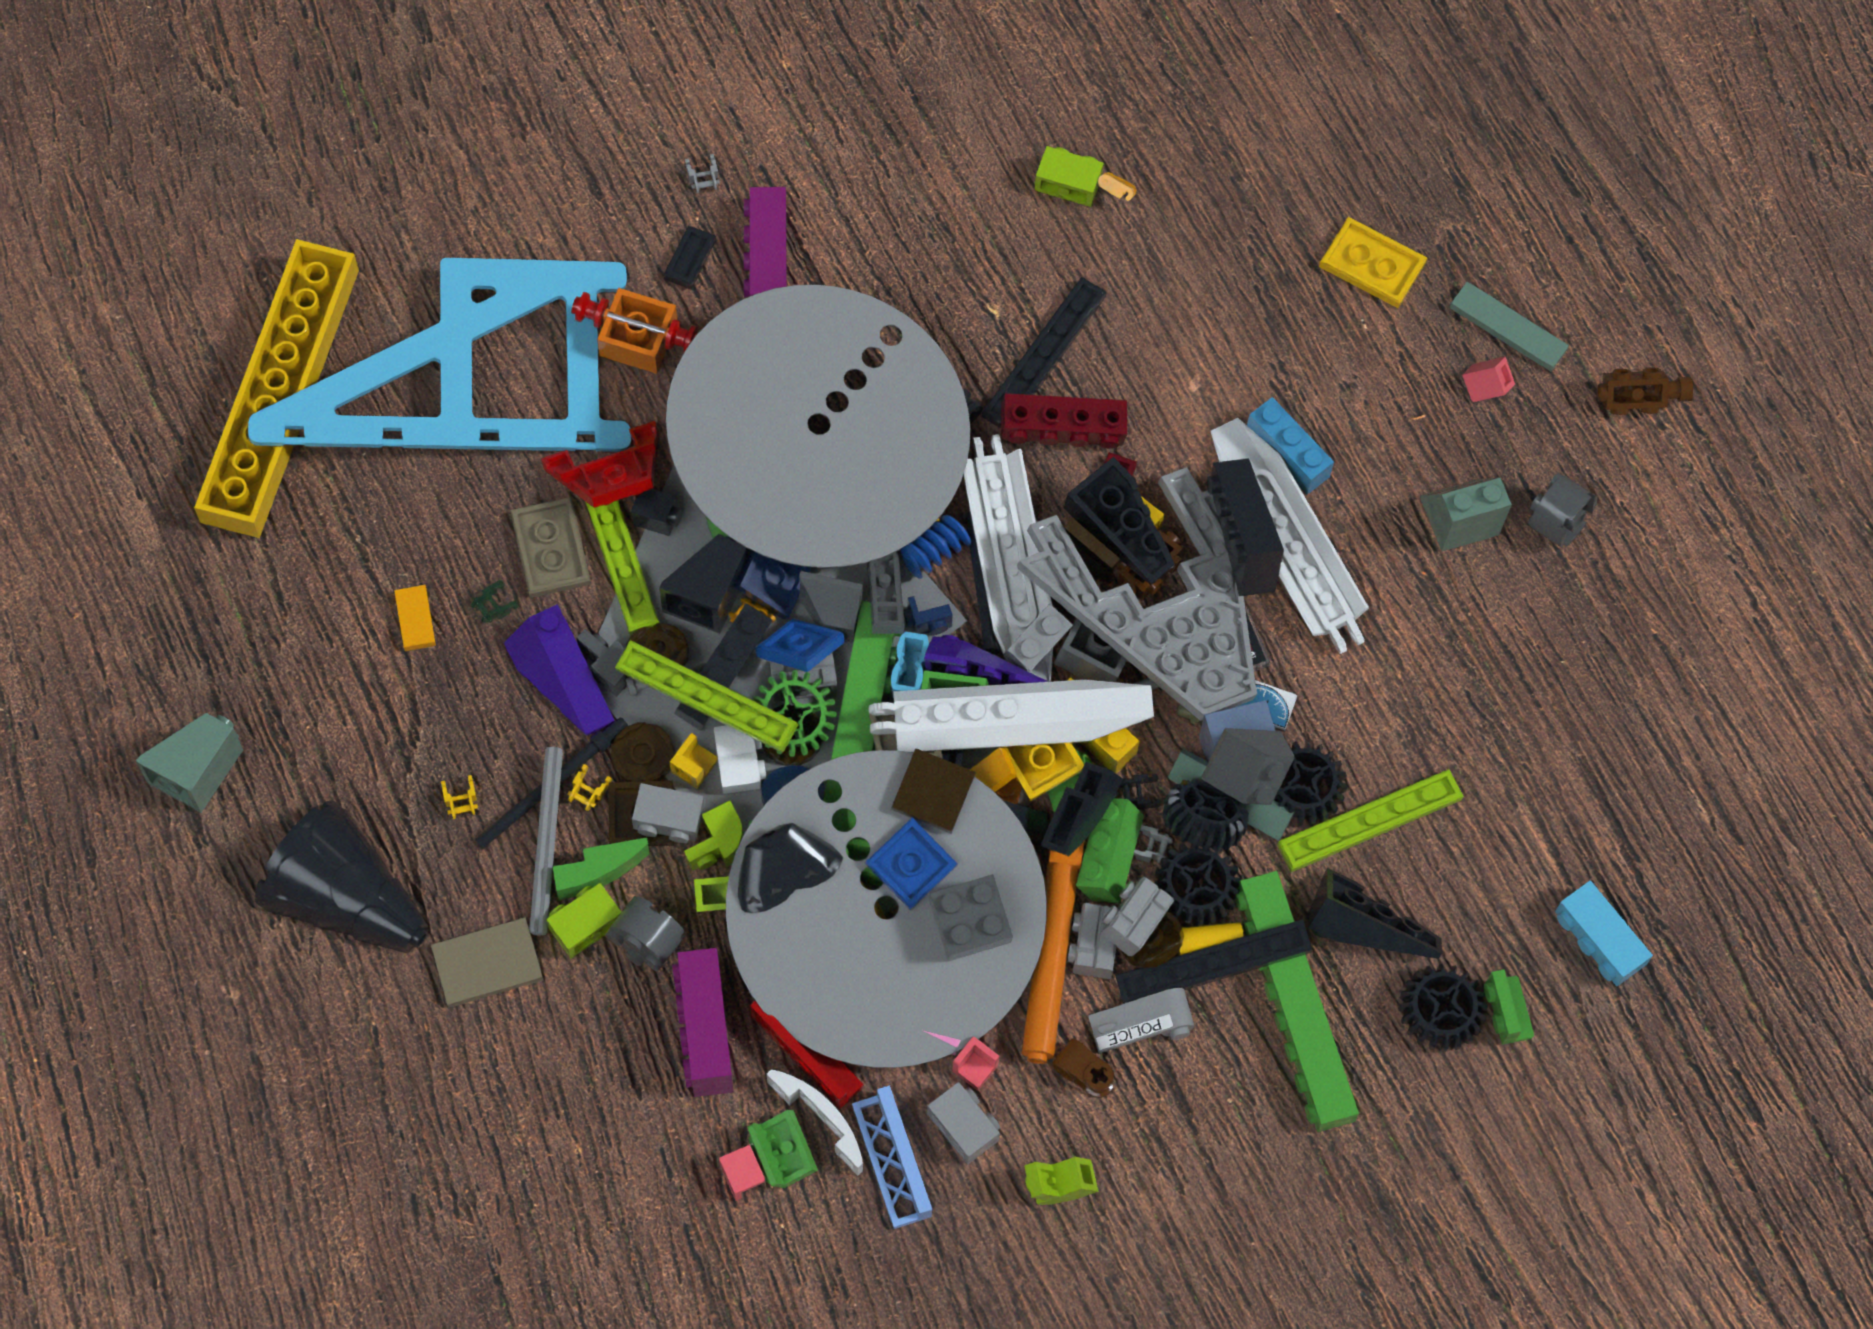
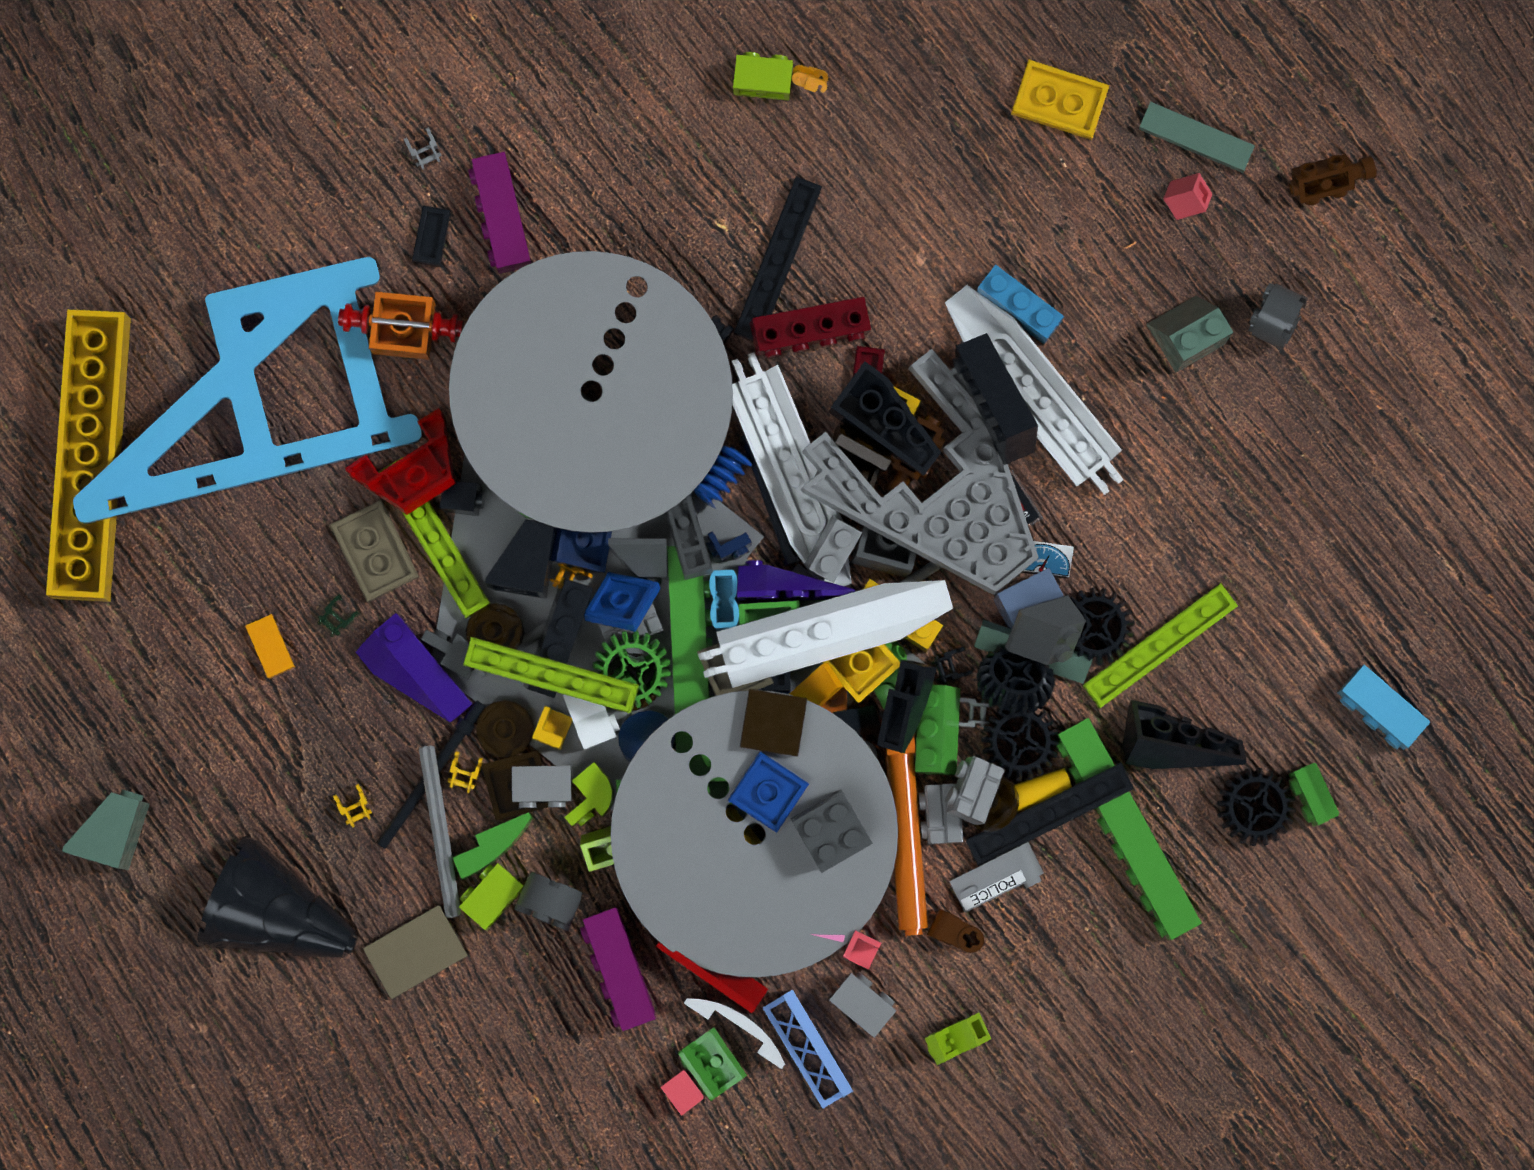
camera: 10 degrees left, 15 degrees up
(783, 864) = (657, 820): black piece -> none

